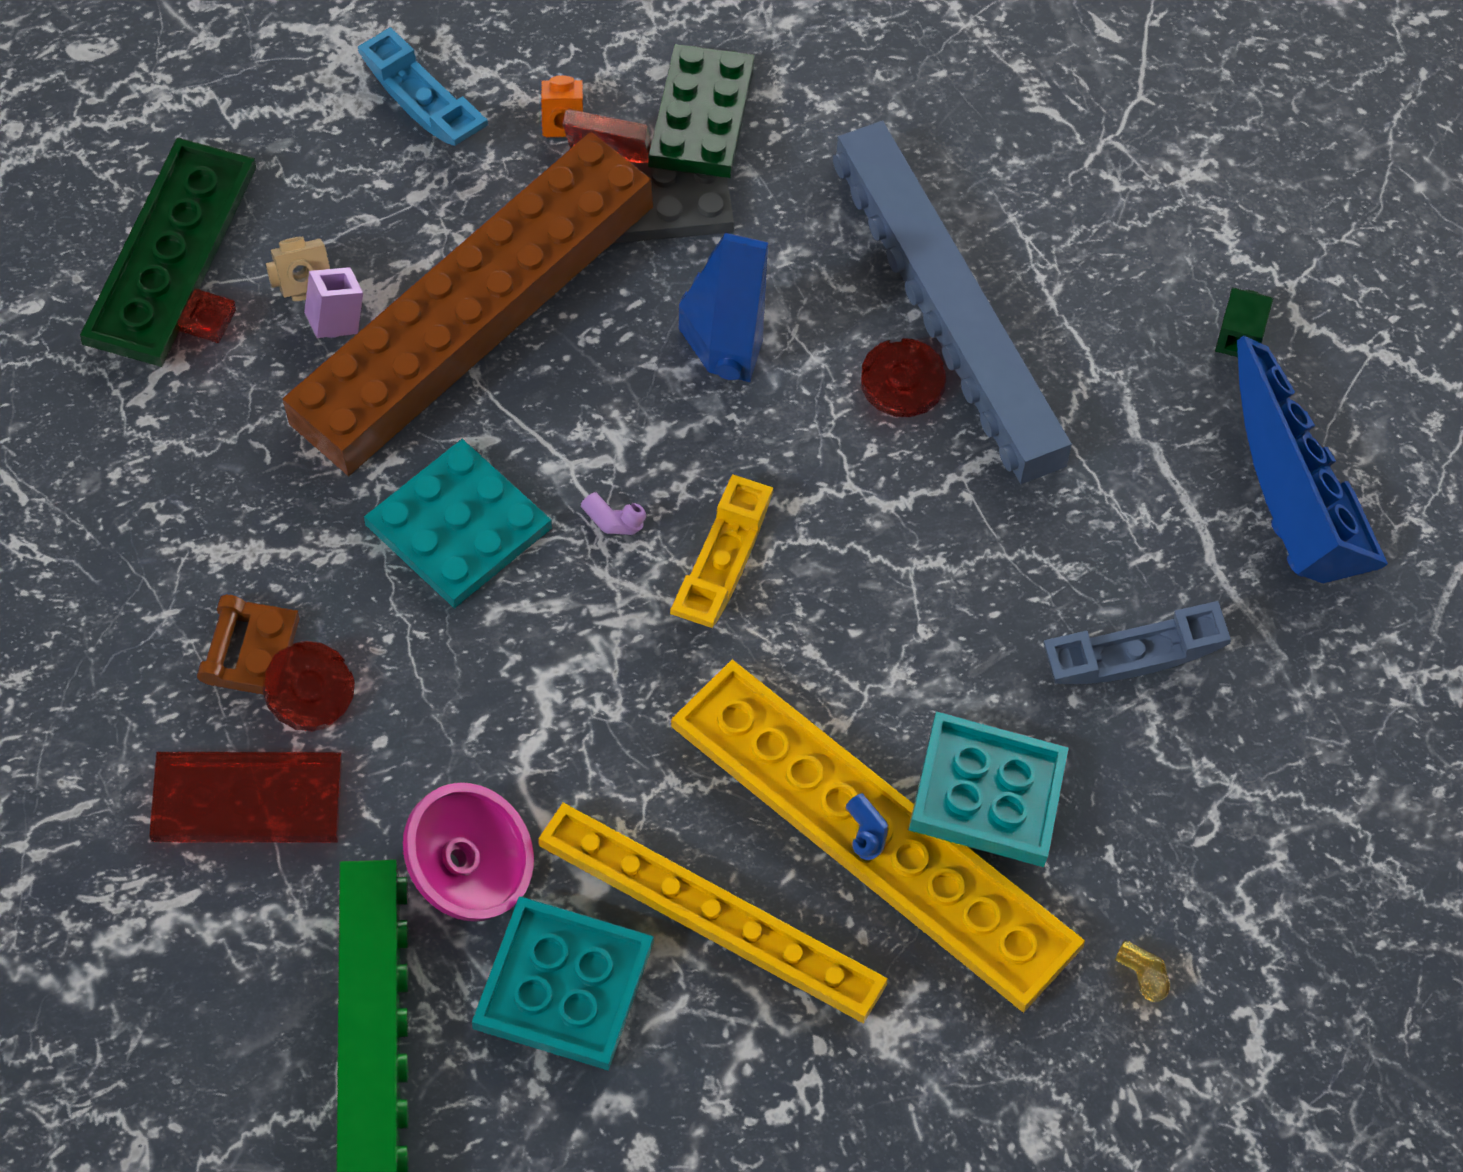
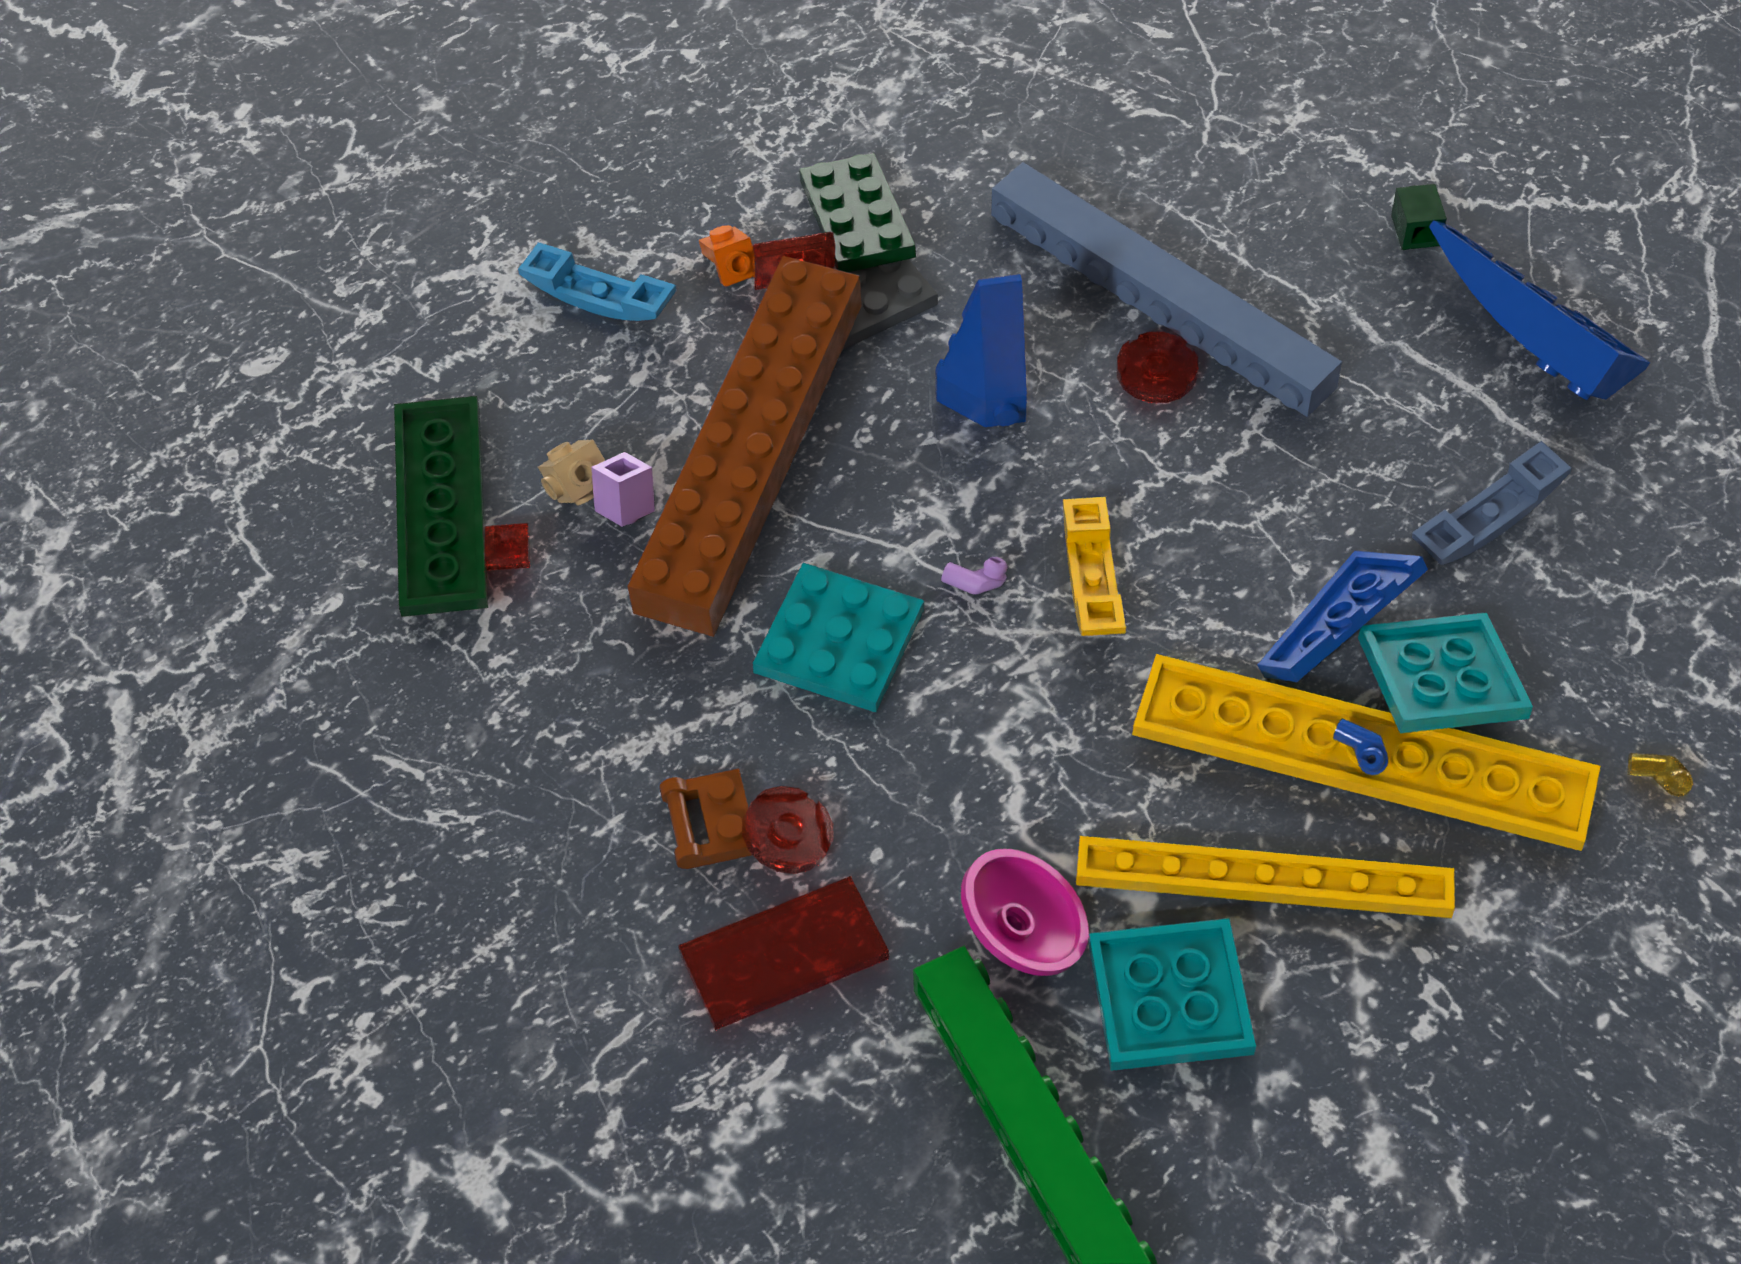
camera: 20 degrees left, 5 degrees down
(930, 687) = (1341, 608): none -> blue wing

